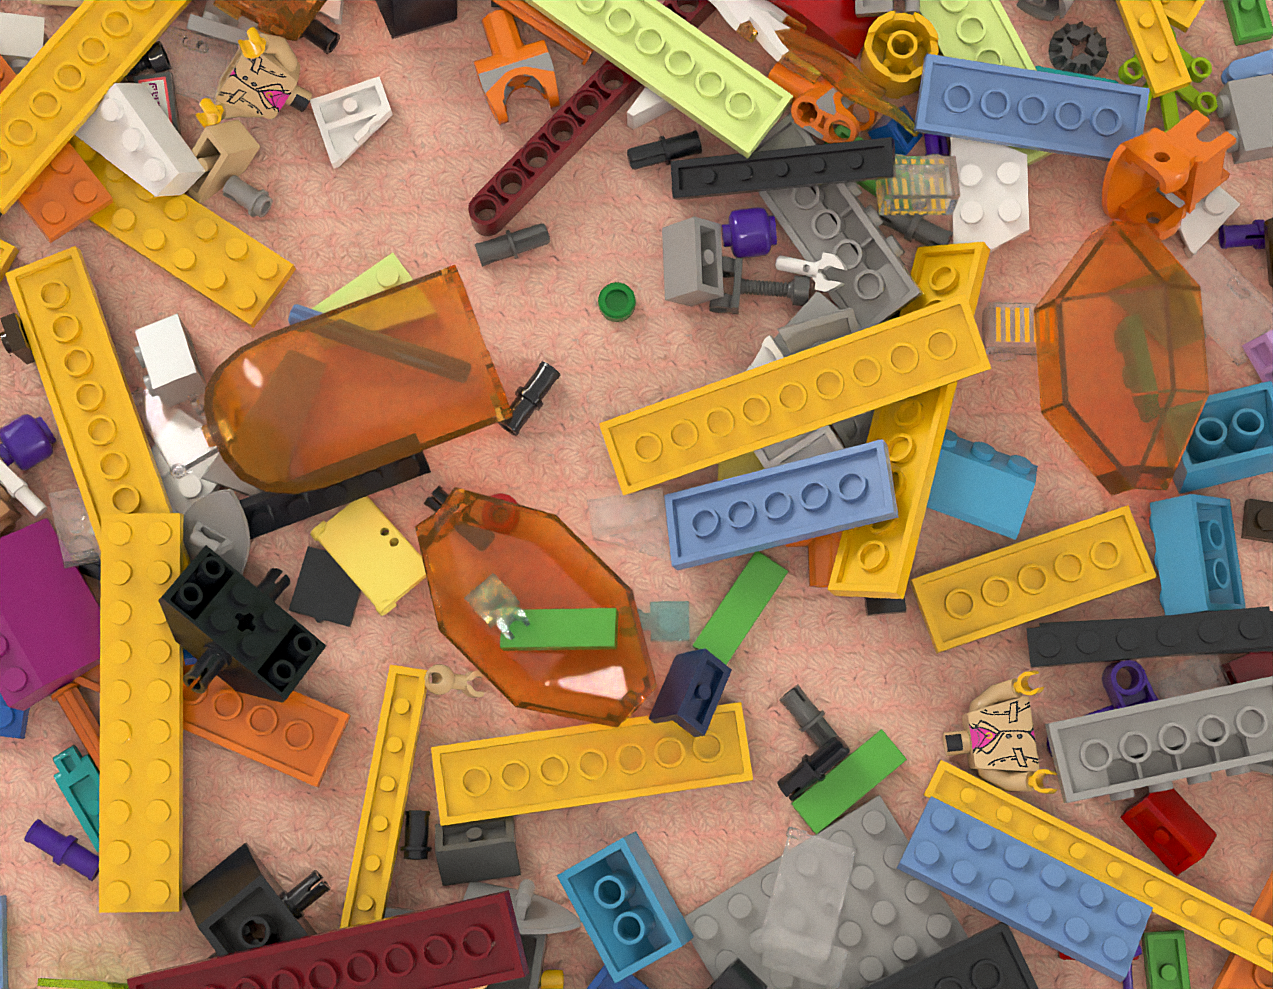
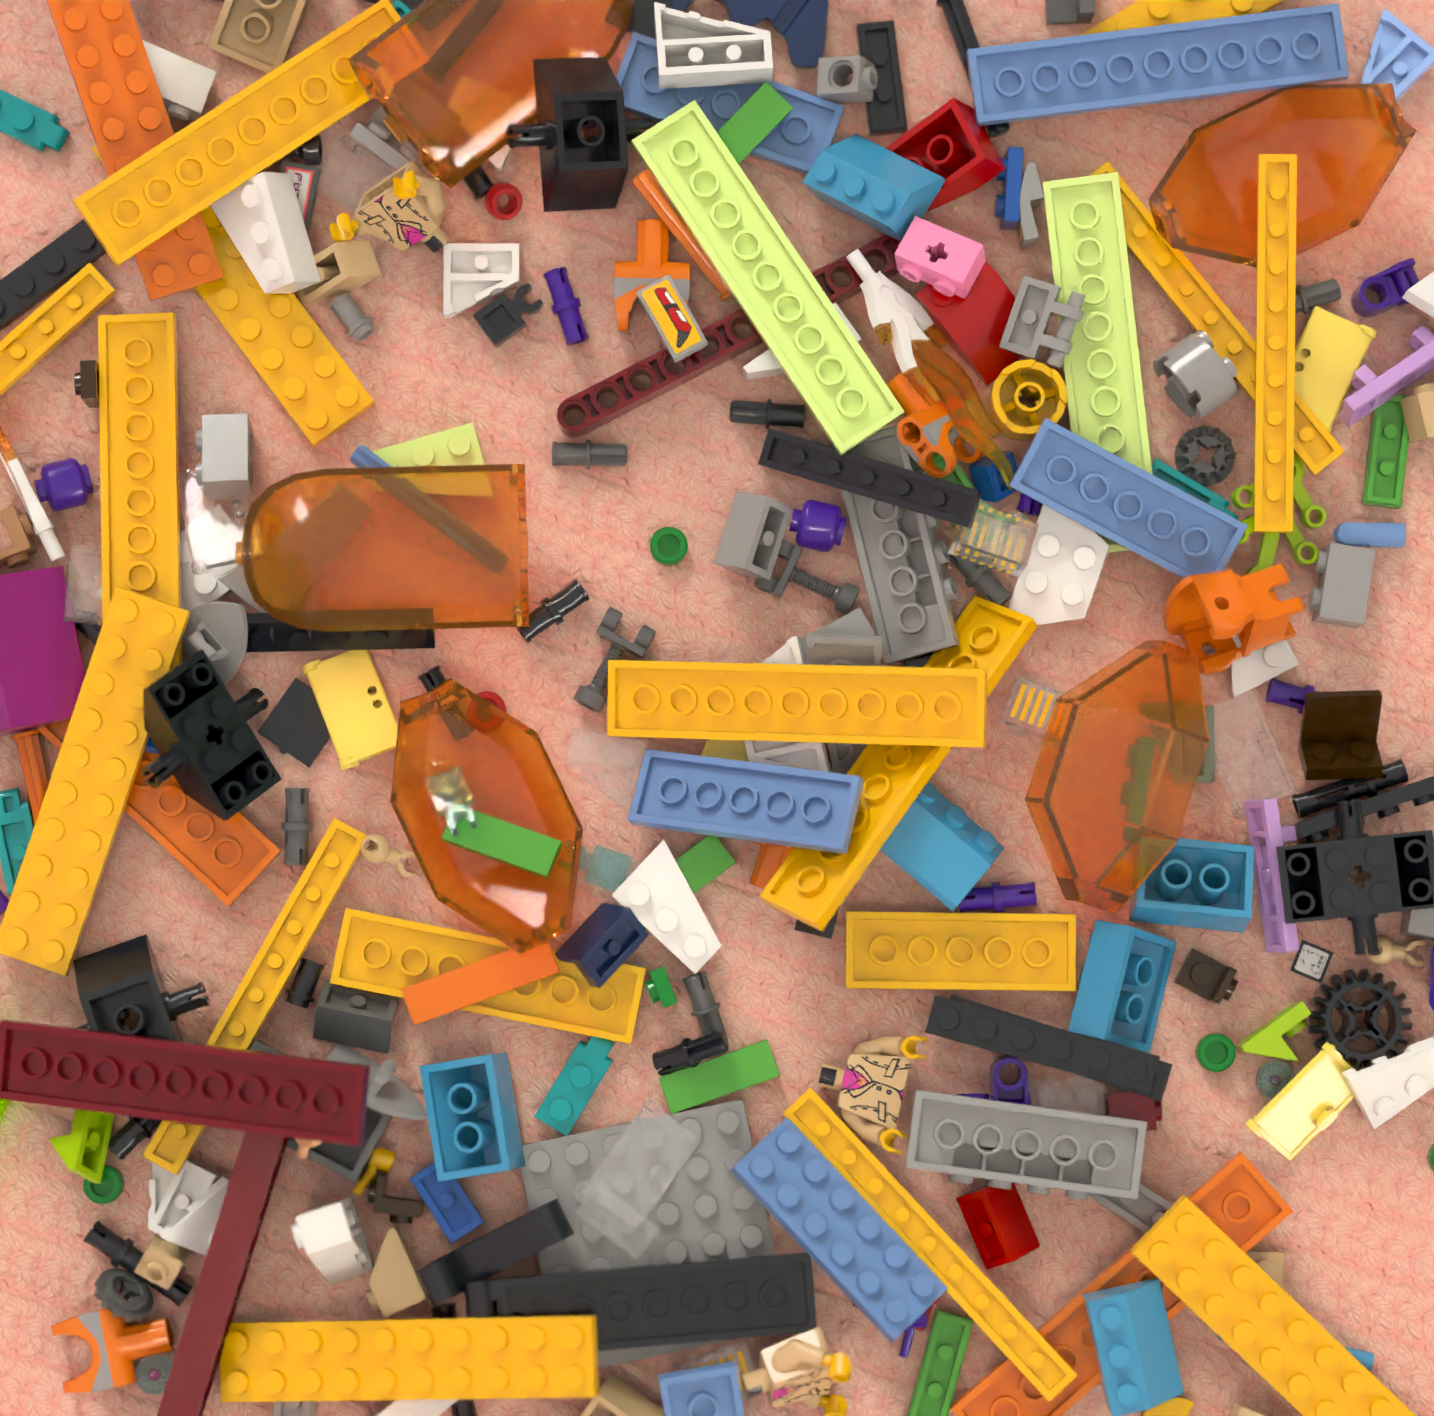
camera: 10 degrees right, 5 degrees up
(356, 686) = (296, 826): none -> dark grey pin
(362, 45) = (514, 203): none -> red plate
(389, 149) = (503, 317): none -> black plate
(443, 118) = (566, 306): none -> dark purple pin
(545, 89) = (672, 318): none -> slope
(584, 772) = (478, 982): none -> orange tile
(594, 464) = (592, 694): none -> dark grey bar
(713, 839) = (576, 1084): none -> teal hinge
(742, 636) = (668, 908): none -> white wing
(762, 716) = (660, 988): none -> green plate
(813, 270) = (865, 584): white bar -> none
(1051, 514) = (999, 897): none -> dark purple pin

